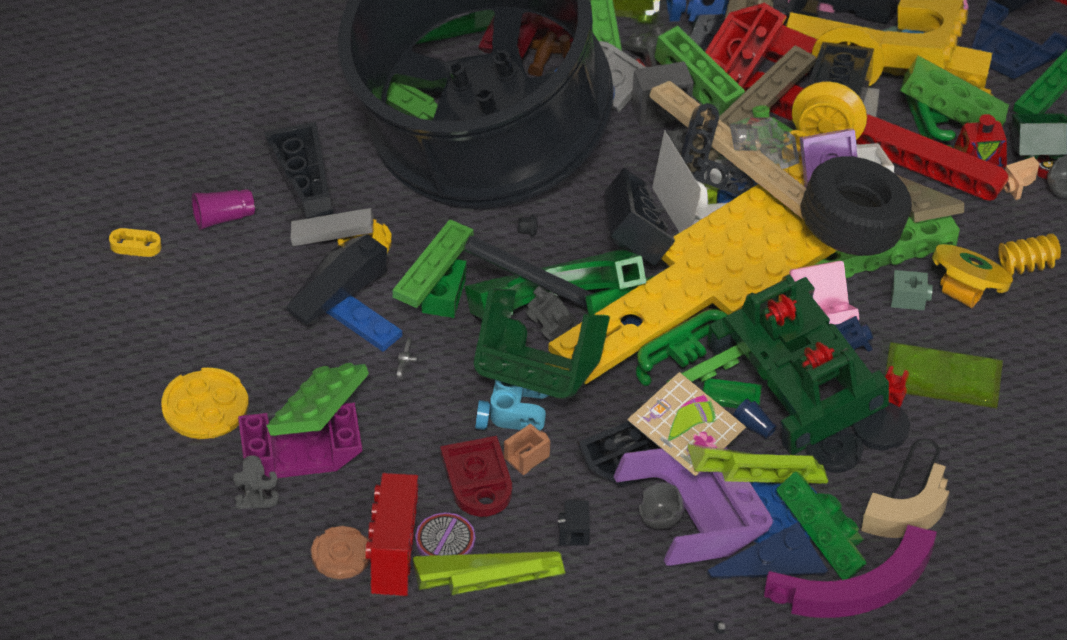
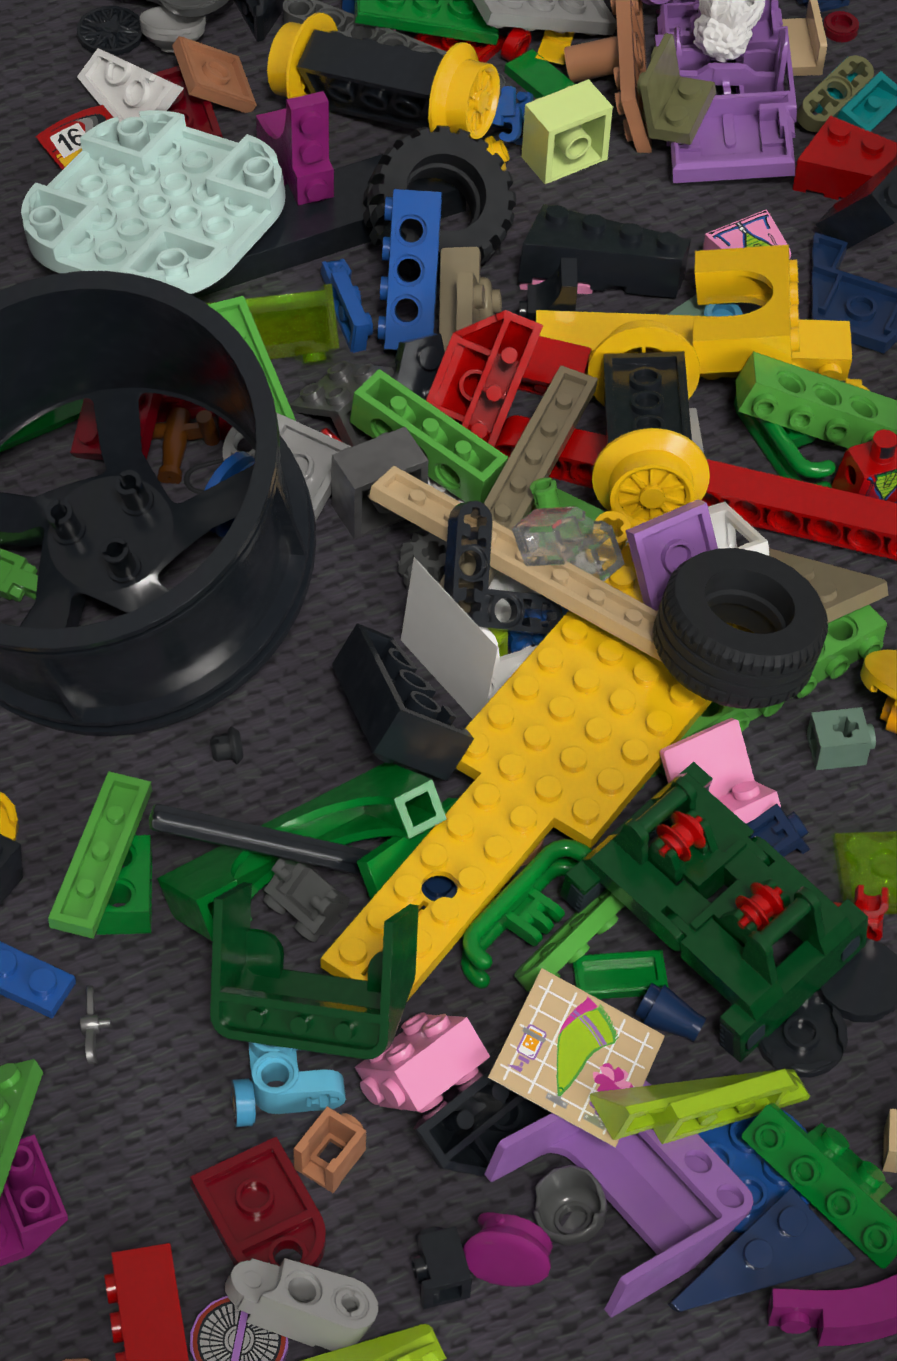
camera: 15 degrees left, 5 degrees up
(487, 522) = (303, 1302): none -> light grey piece
(584, 414) = (423, 1063): none -> bright pink brick
(616, 521) = (508, 1251): none -> magenta piece

